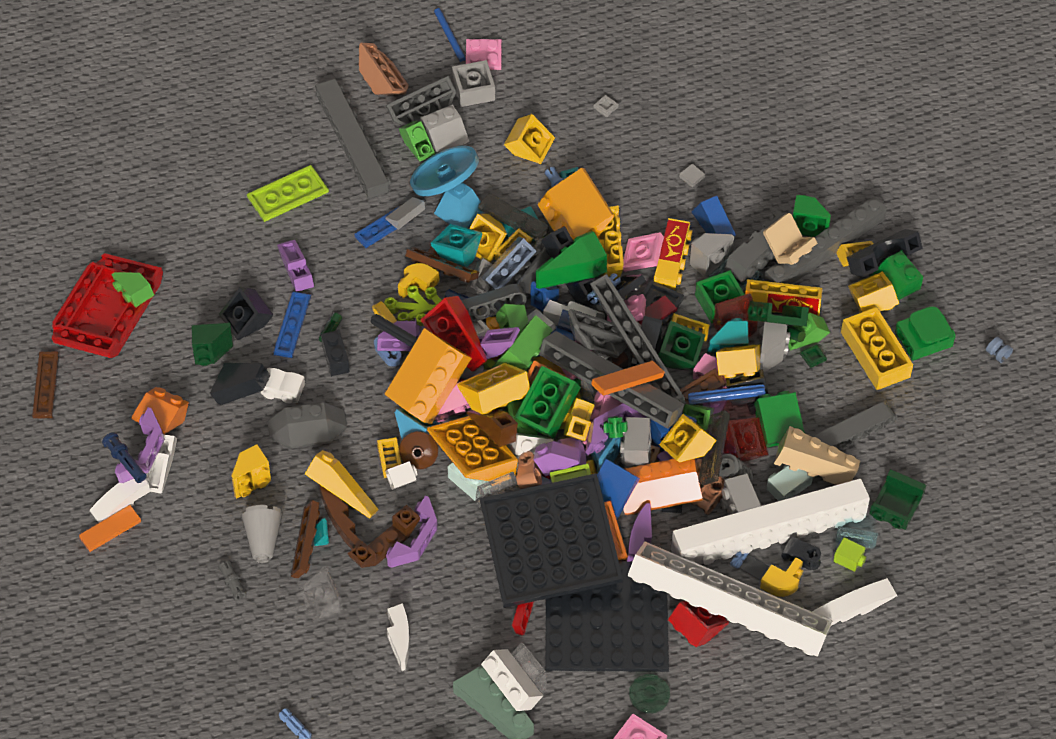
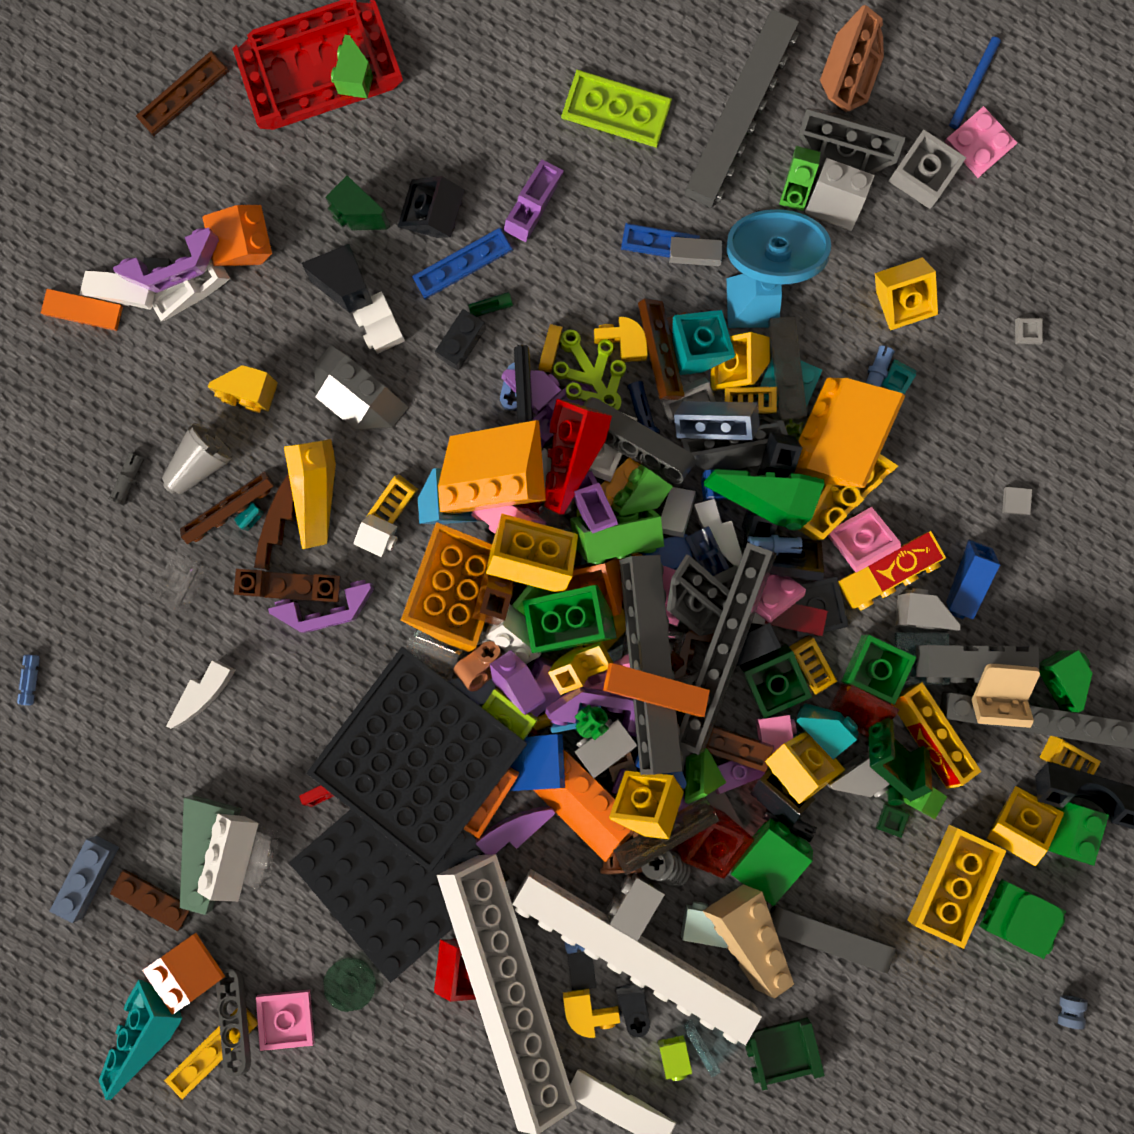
camera: 50 degrees right, 30 degrees up
(116, 445) = (133, 251): dark blue pin -> none
(423, 442) = (417, 525): reddish brown dish -> none
(726, 394) = (750, 787): blue axle -> none

